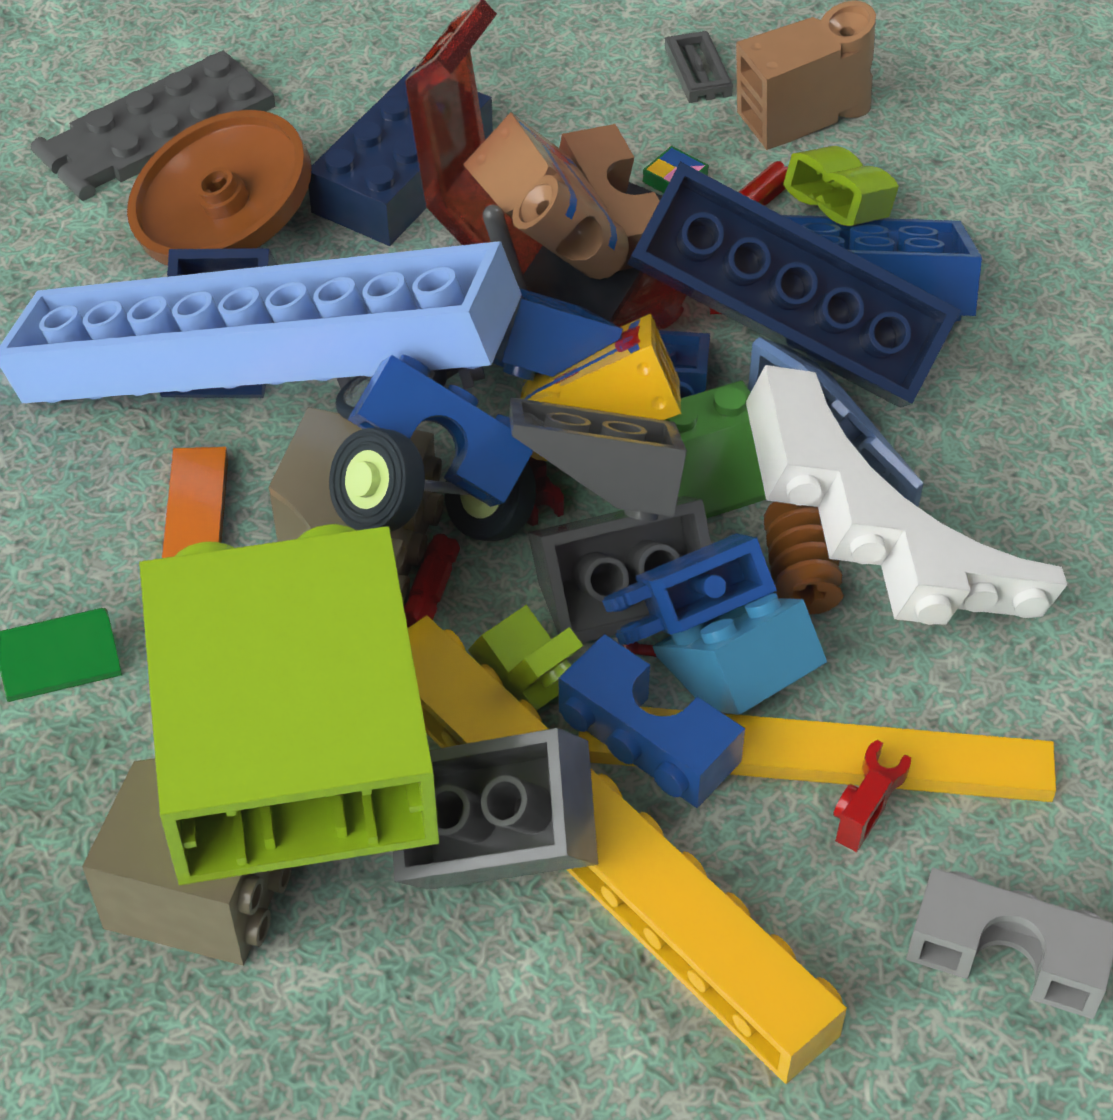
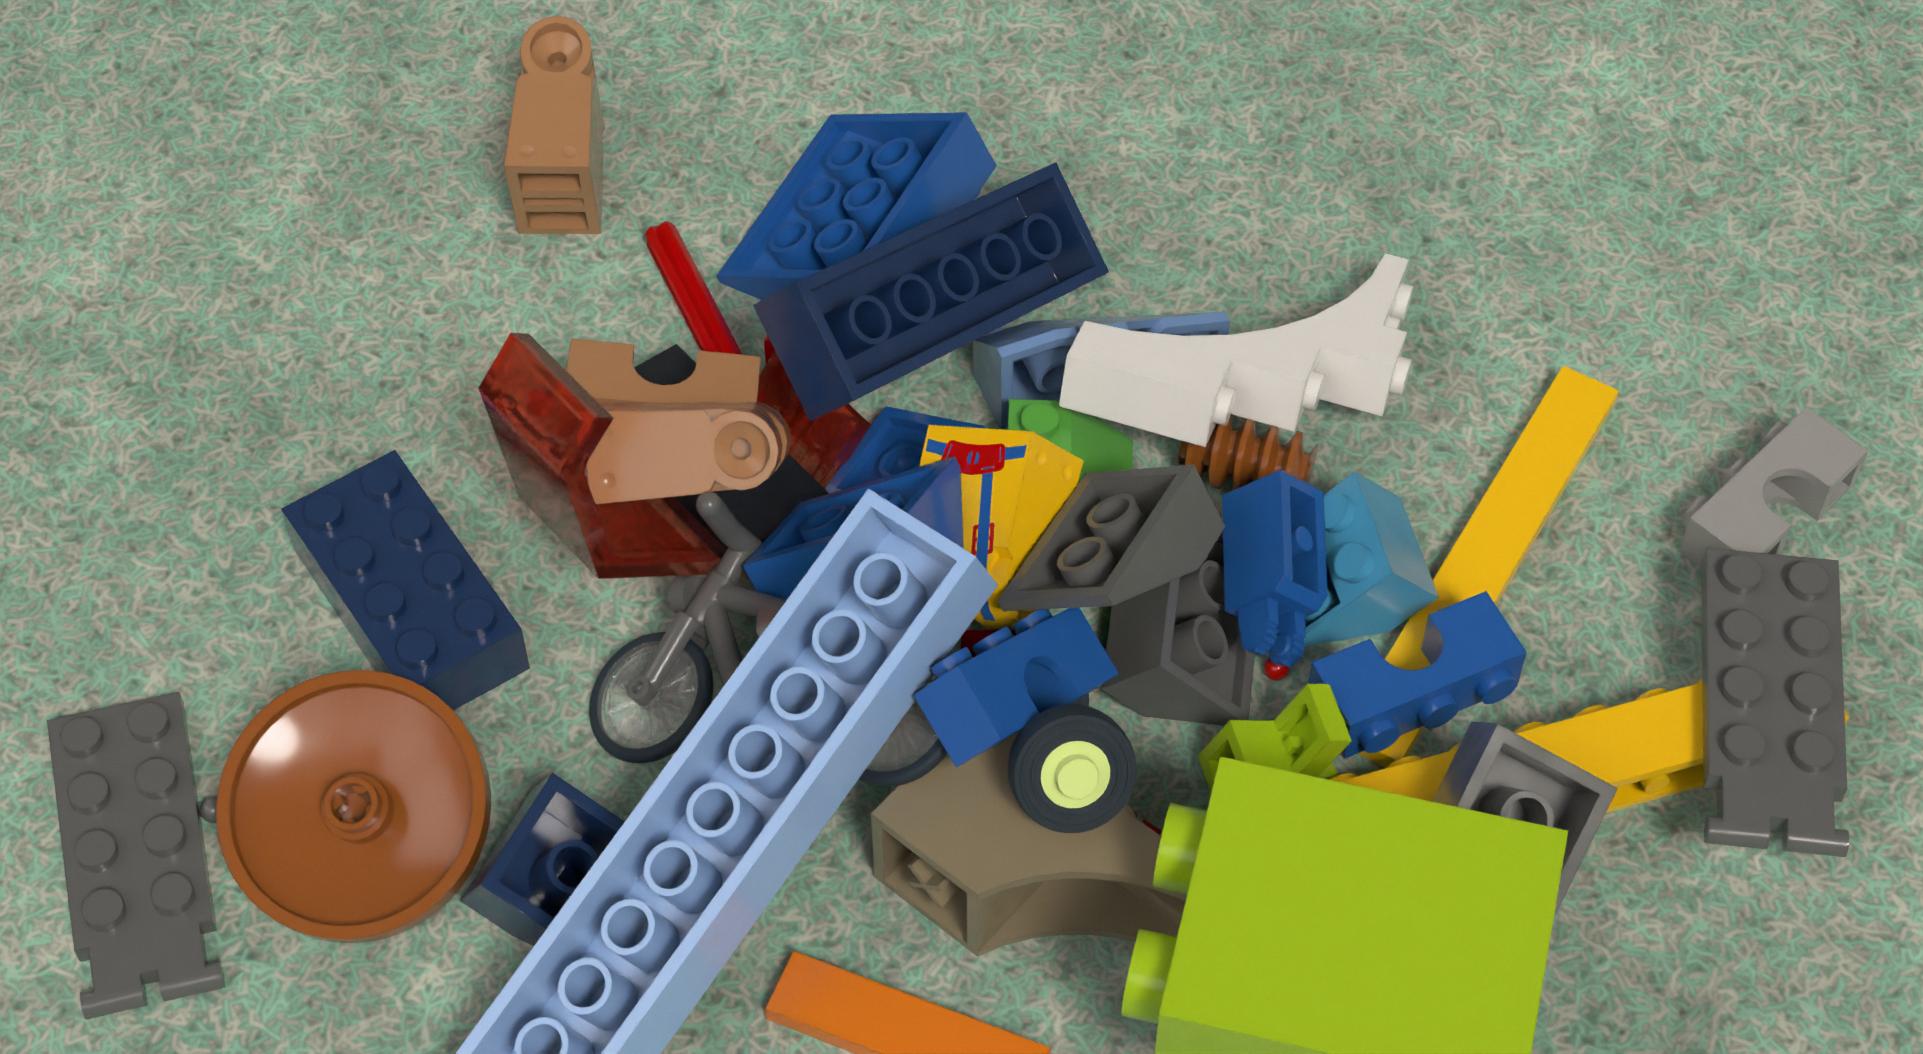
camera: 65 degrees left, 5 degrees up
(662, 169) = (594, 321): tile -> none
(704, 87) = (418, 242): dark grey tile -> none
(767, 982) = (1773, 700): none -> dark grey hinge
(841, 185) = (739, 187): lime brick -> none
(863, 806) = (1578, 540): red plate -> none

